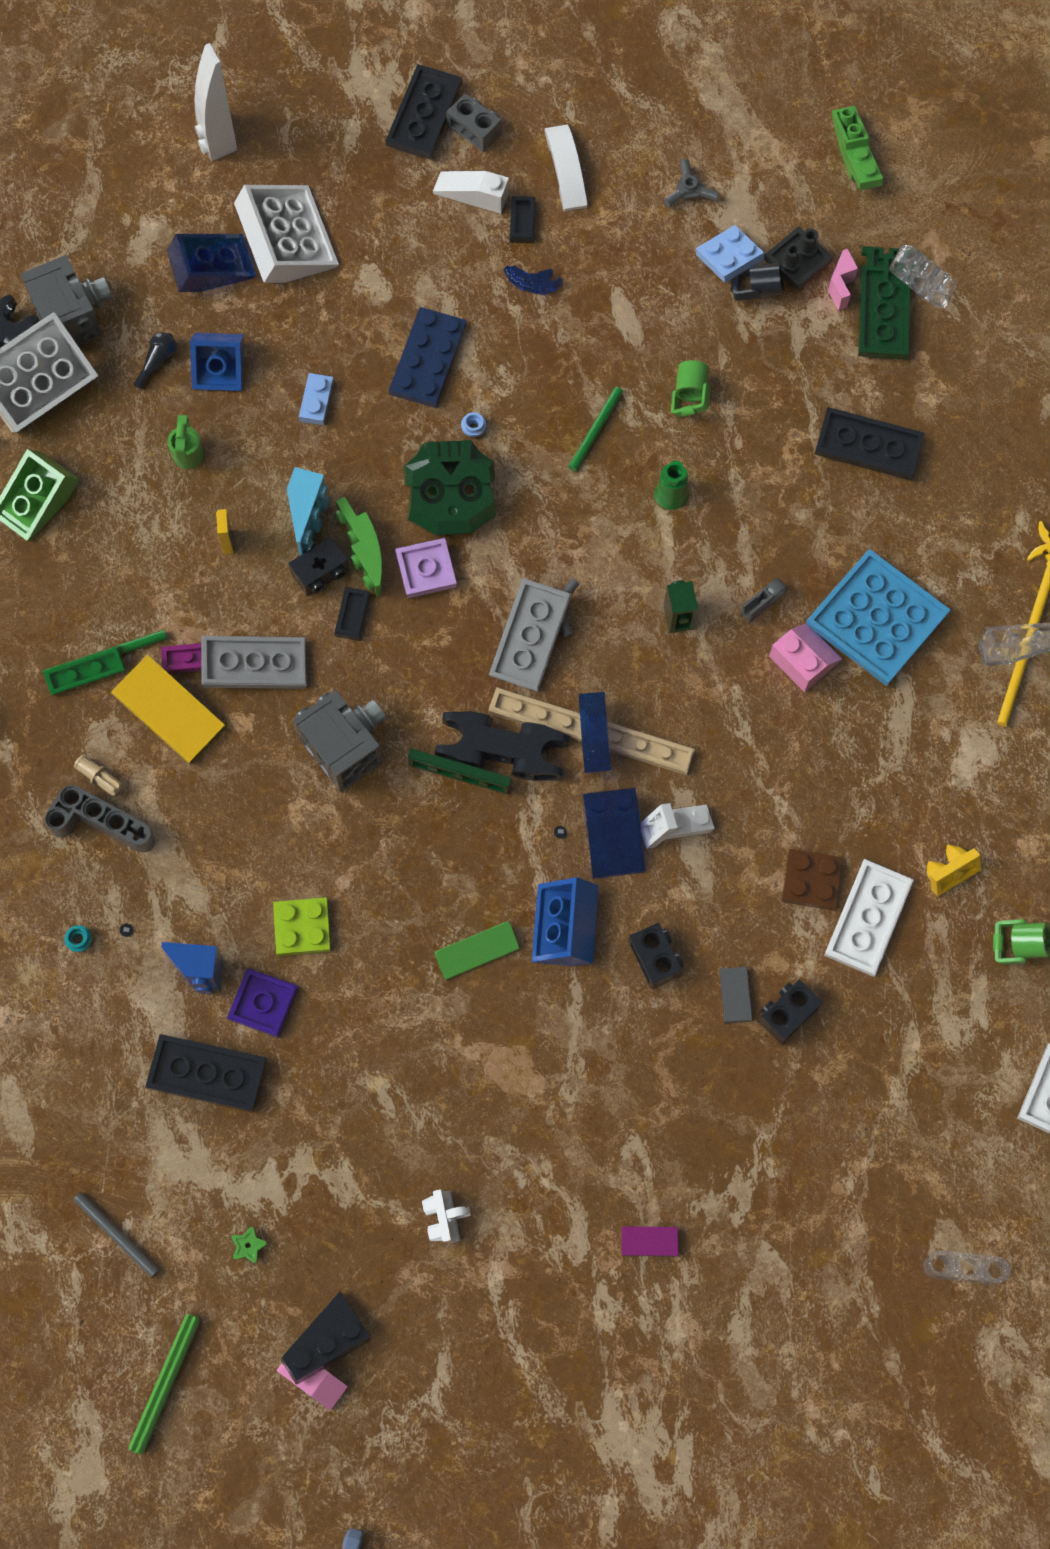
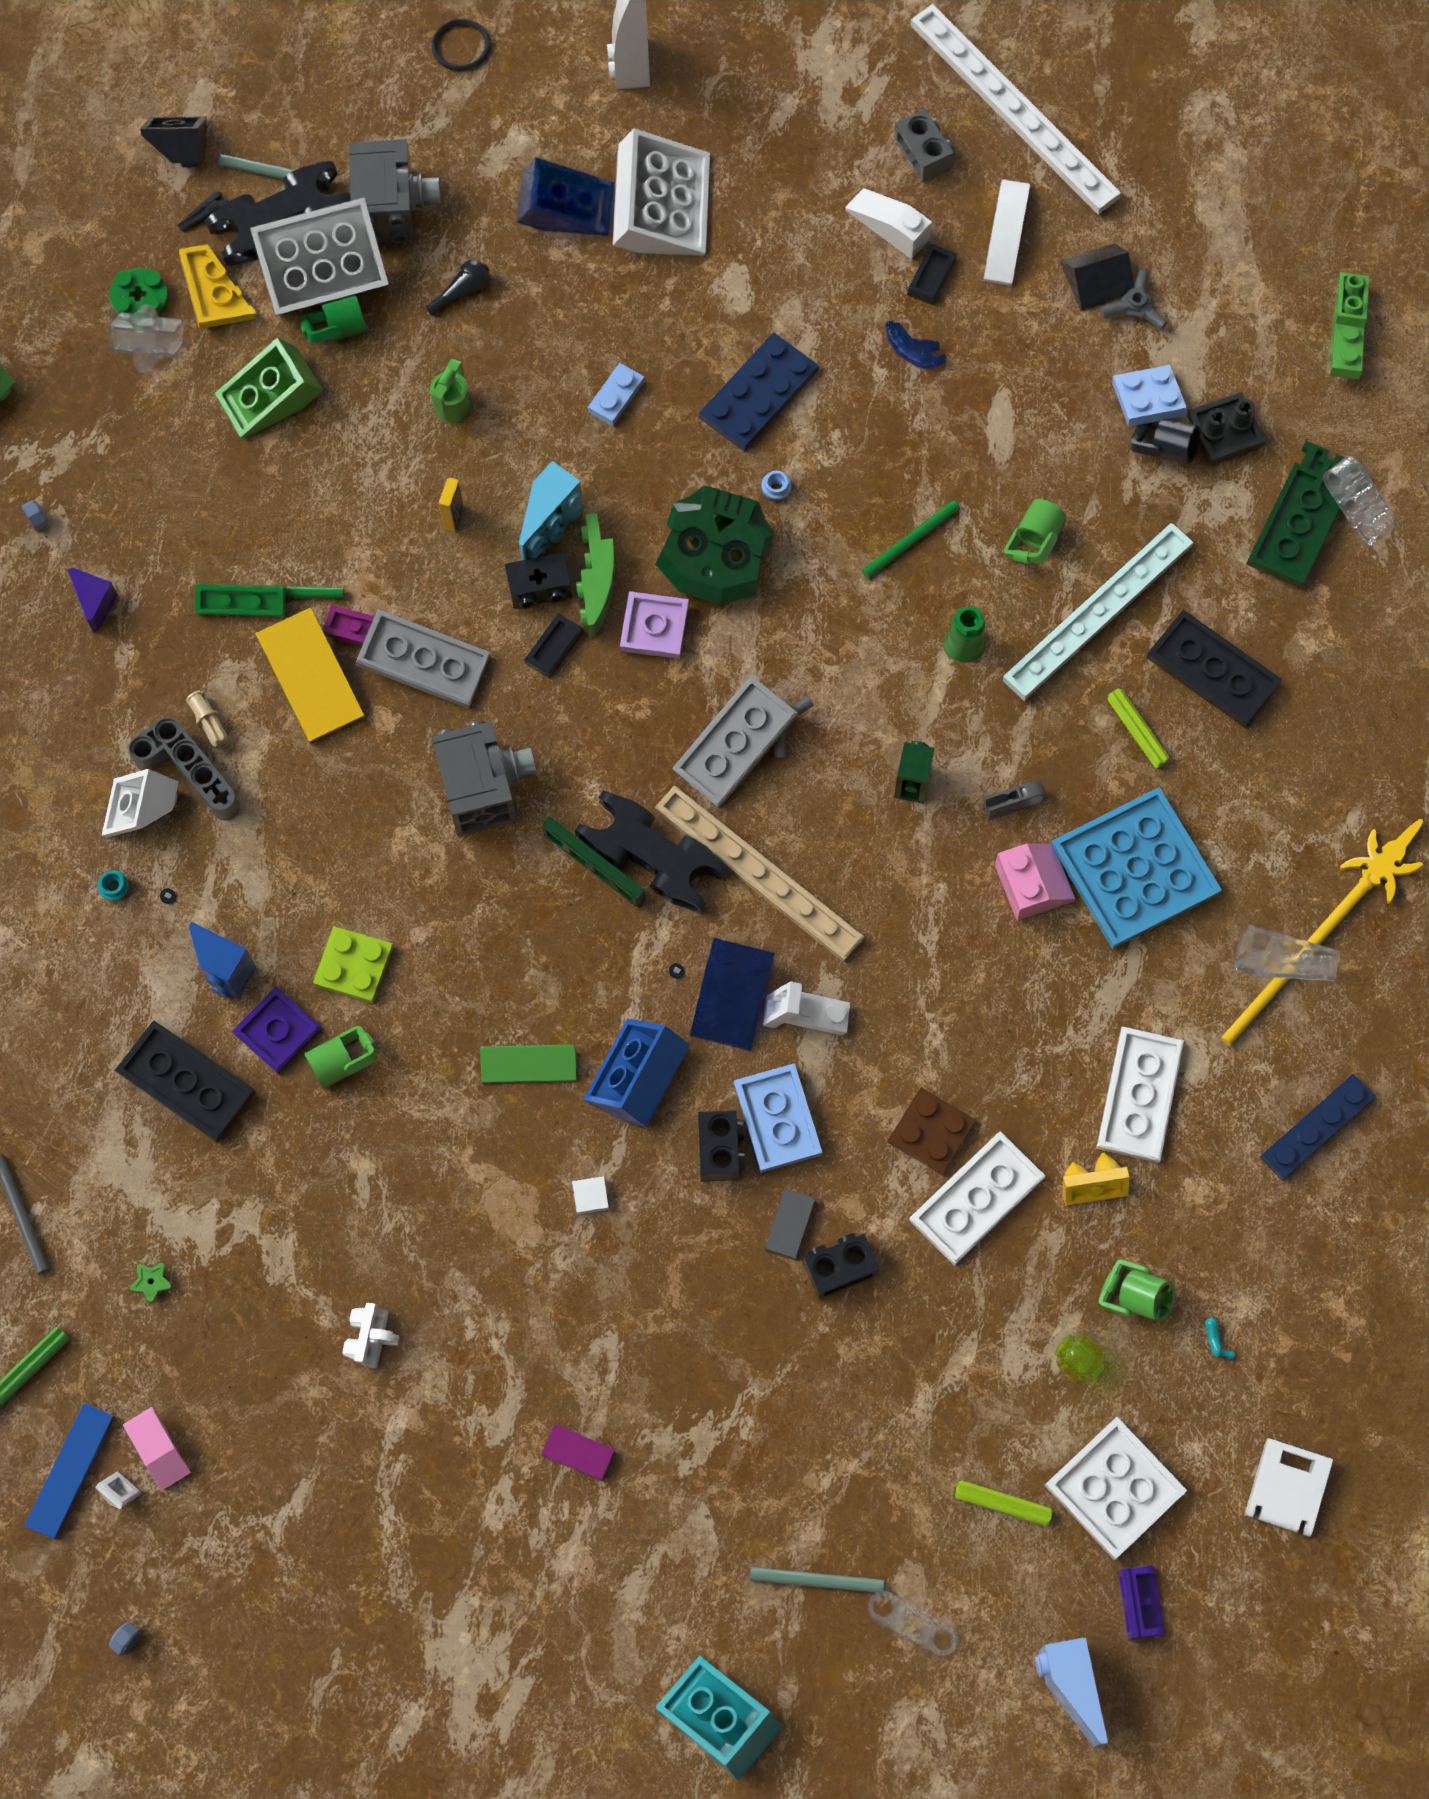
camera: 25 degrees right, 0 degrees up
(70, 863) = (138, 801): none -> white slope
(71, 187) = (439, 31): none -> black tyre
(71, 418) = (342, 318): none -> green piece
(217, 361) = (525, 313): blue slope -> none
(247, 1427) = (69, 1471): none -> blue tile
(294, 1425) = (117, 1490): none -> white slope
(322, 1010) = (332, 1061): none -> bright green piece
(325, 1341) = (186, 1414): black wing -> none
(423, 111) = (871, 113): black plate -> none
(531, 70) = (1015, 109): none -> white plate
(570, 1034) = (590, 1195): none -> white tile
(595, 732) = (757, 876): clear blue slope -> none
(651, 175) = (1099, 275): none -> black slope
(690, 916) = (777, 1118): none -> light blue plate
(762, 433) = (1097, 611): none -> light aqua plate
(832, 510) = (1138, 728): none -> lime axle
(844, 273) = (1268, 465): bright pink slope -> none
(851, 1403) = (719, 1717): none -> teal slope
(877, 1264) = (816, 1580): none -> sand green bar
(956, 789) = (1140, 1094): none -> white tile
(992, 1145) = (1003, 1503): none -> lime axle
(1001, 1009) = (1079, 1357): none -> clear neon green head

